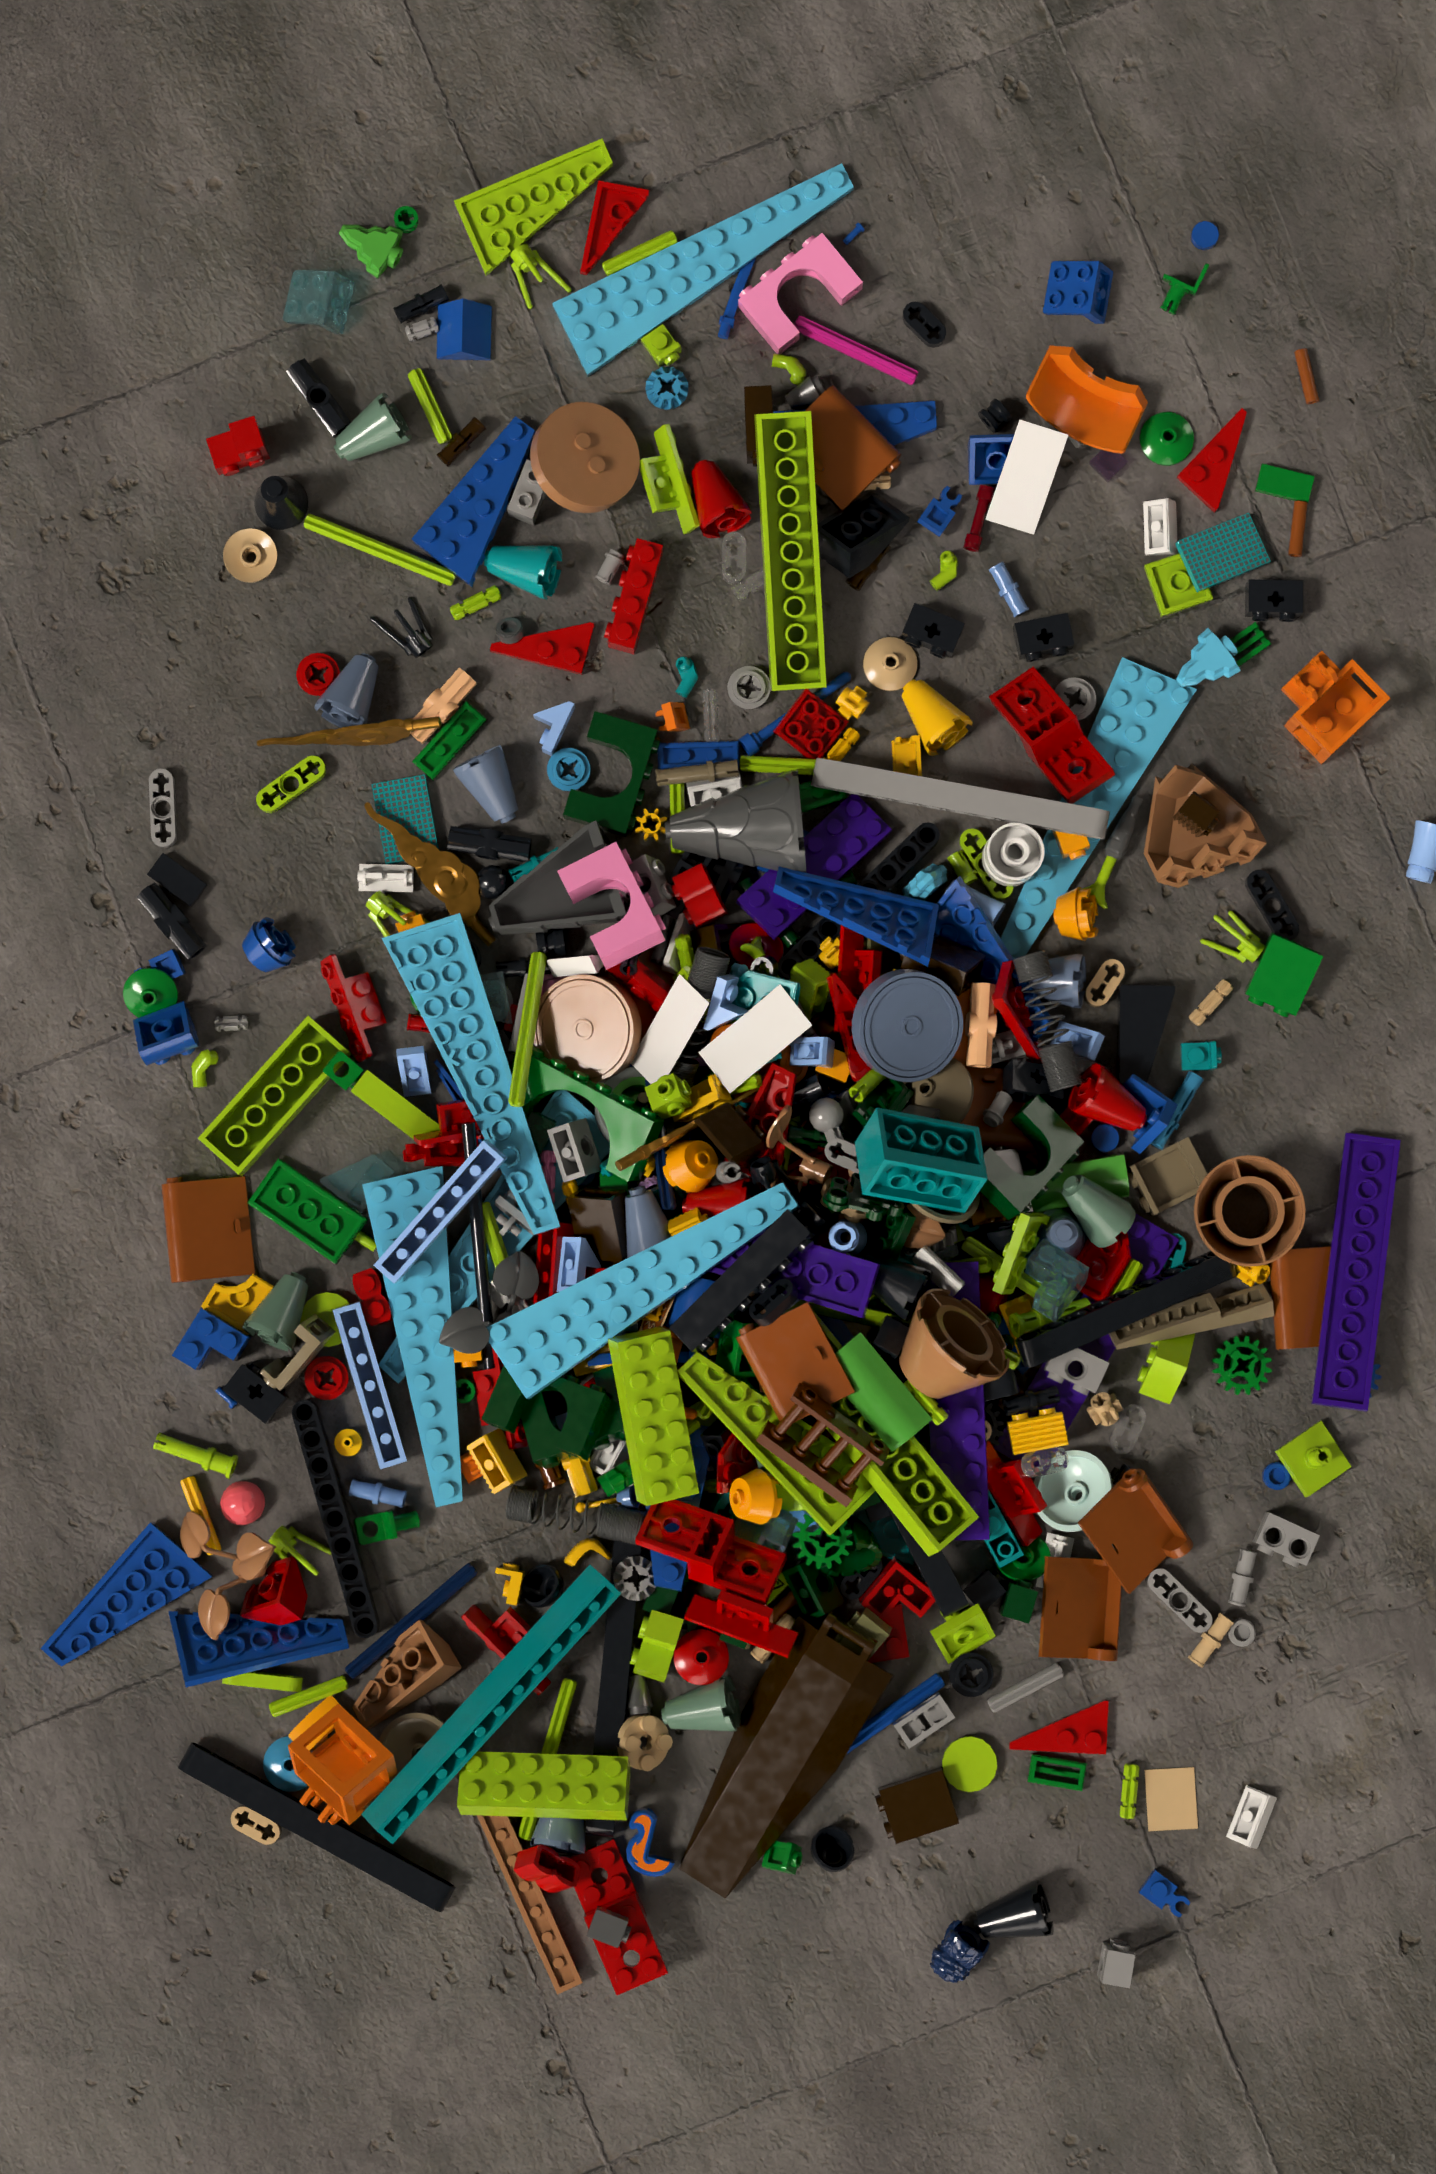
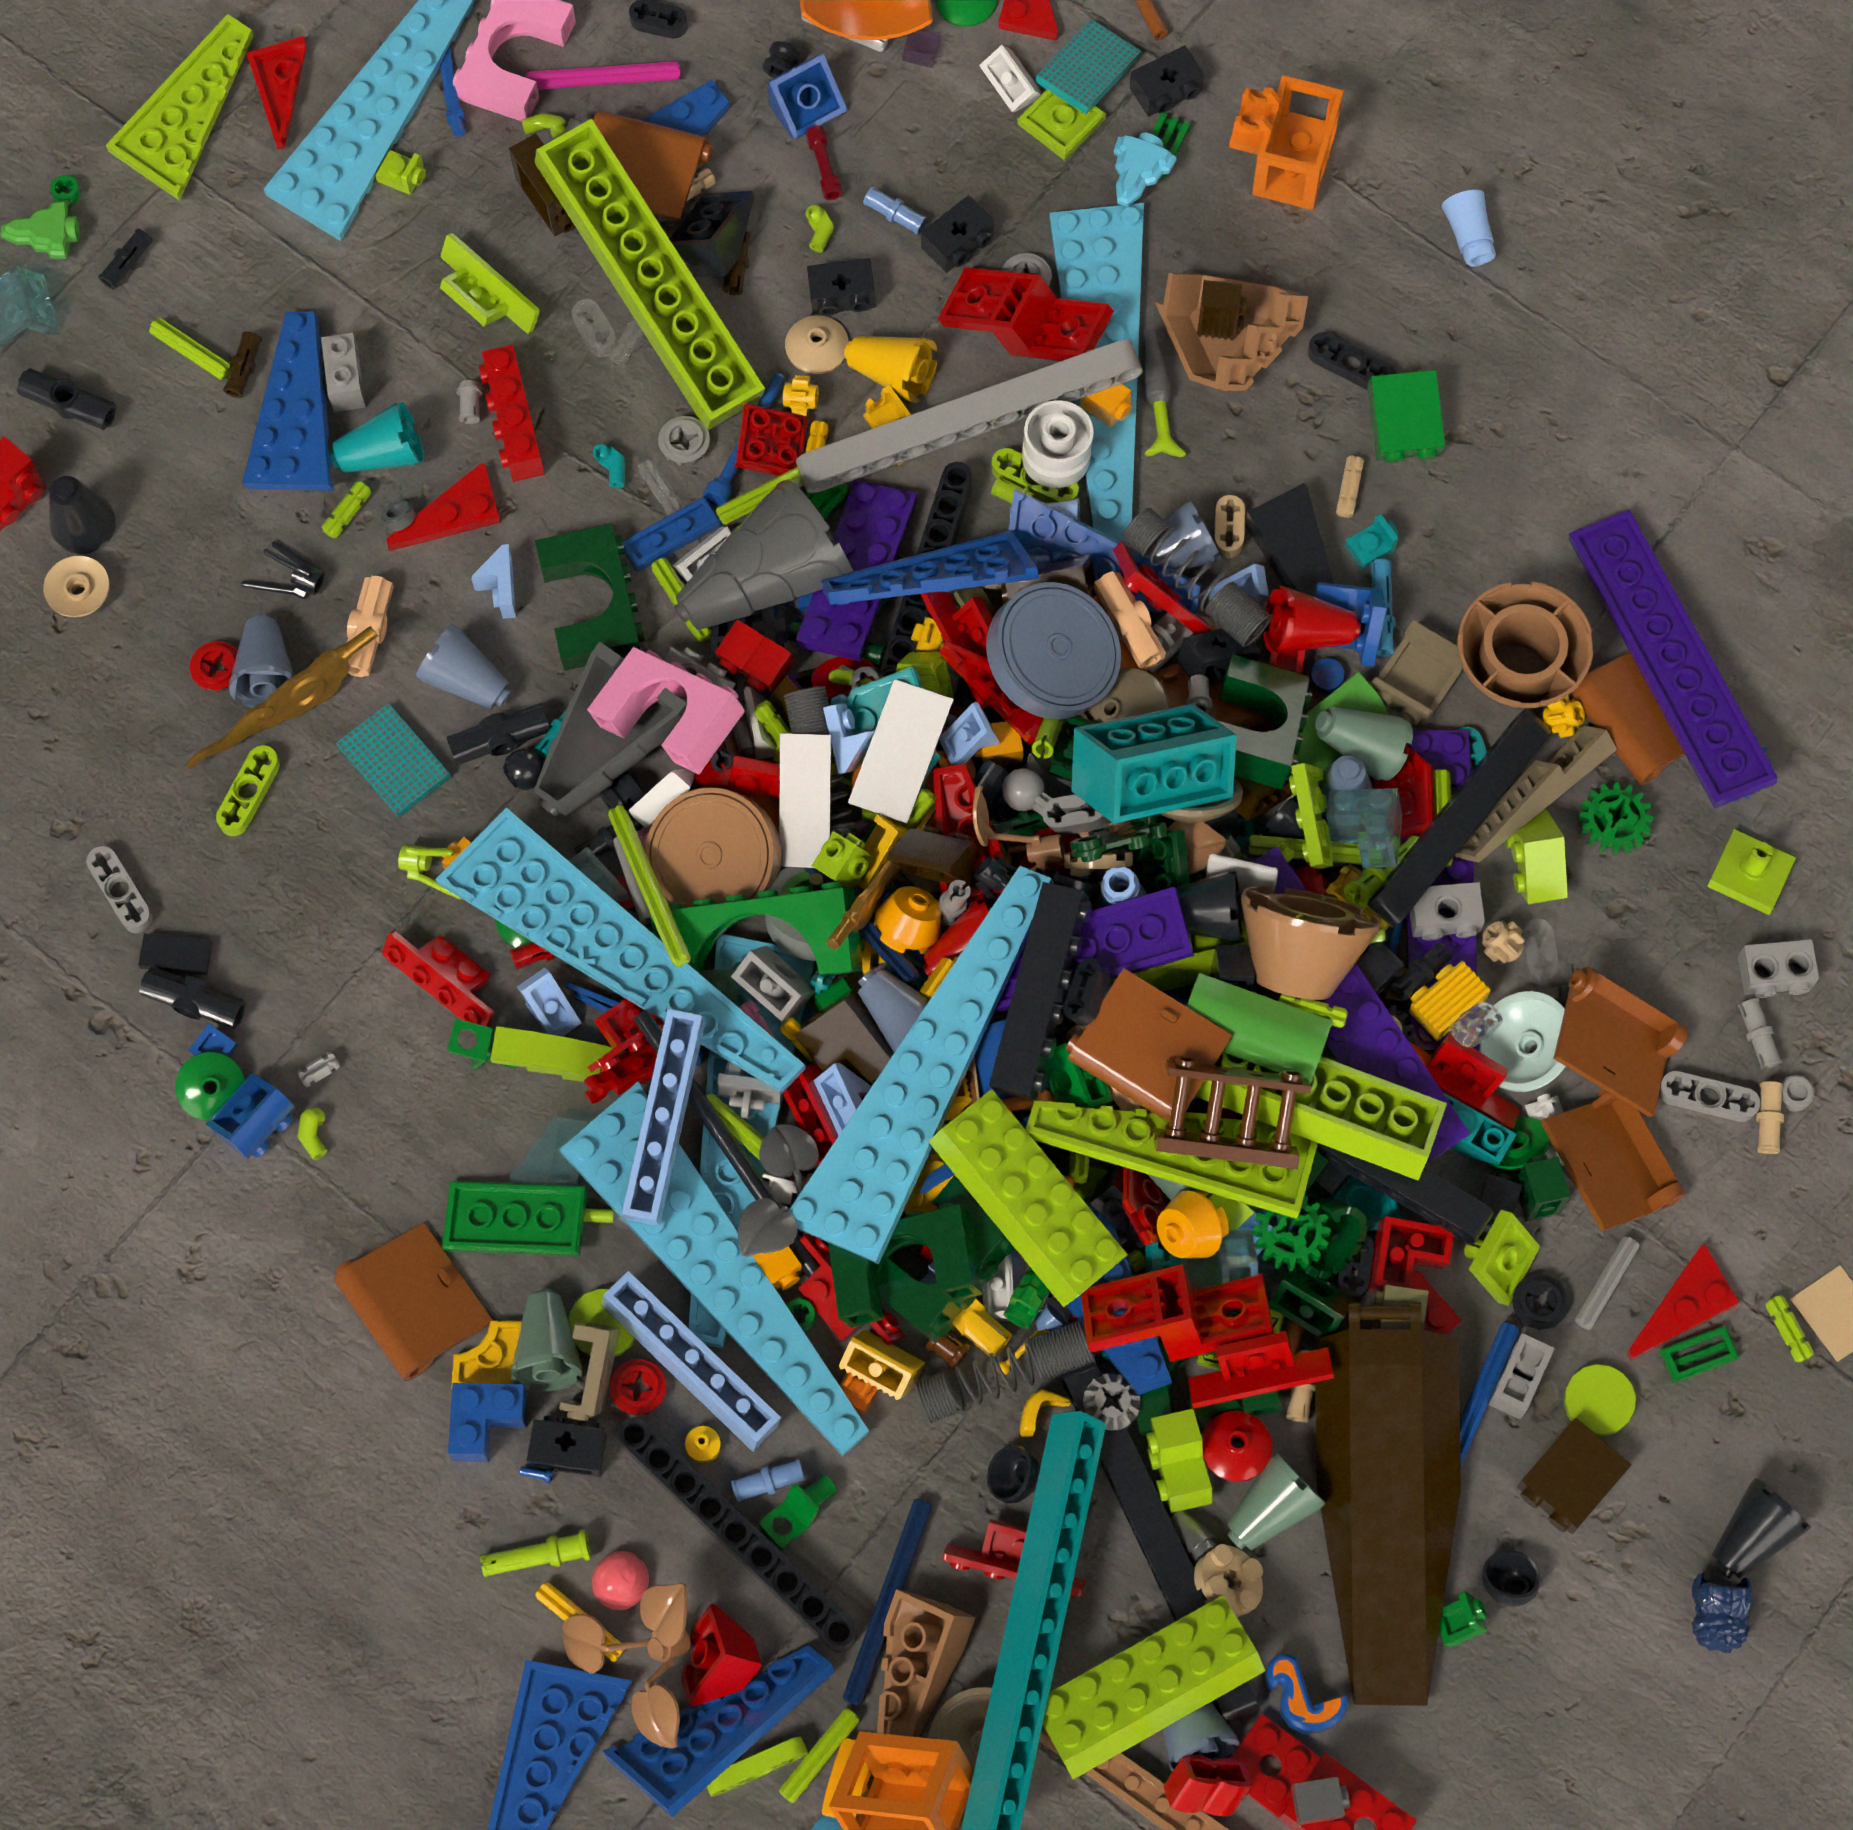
camera: 30 degrees left, 15 degrees down
(267, 946) = (314, 962): blue cone -> none
(273, 1097) = (407, 1116): lime brick -> none
(285, 1542) = (698, 1591): lime plant -> none
(370, 1289) = (629, 1255): red brick -> none
(372, 431) = (141, 398): sand green cone -> none
(379, 549) = (214, 511): lime axle -> none
(385, 878) = (406, 829): white hinge -> none
(422, 329) = (140, 281): light grey piece -> none
(440, 873) = (459, 790): pearl gold piece -> none
(449, 740) = (396, 658): green tile -> none
(464, 330) = (185, 261): blue slope -> none
(511, 1588) = (981, 1497): yellow bracket -> none
(527, 260) = (214, 163): lime plant -> none
(552, 1741) = (1124, 1639): lime axle -> none
(568, 756) = (532, 607): dark azure gear -> none
(584, 457) = (381, 306): medium nougat brick -> none
(639, 252) = (326, 99): lime axle -> none
(655, 818) = (660, 615): yellow gear -> none
(667, 400) = (436, 217): dark azure gear -> none
(674, 716) = (624, 507): orange tile -> none
(693, 773) = (689, 538): dark tan pin -> none
(717, 501) = (546, 279): red cone -> none
(926, 882) = (985, 518): medium azure rock -> none
(939, 514) = (780, 177): blue plate -> none
(1026, 477) = (848, 94): white sticker -> none
(1076, 914) = (1158, 470): light orange cone -> none
(1249, 945) = (1353, 411): lime plant -> none
(1276, 1476) = (1724, 913): blue tile -> none

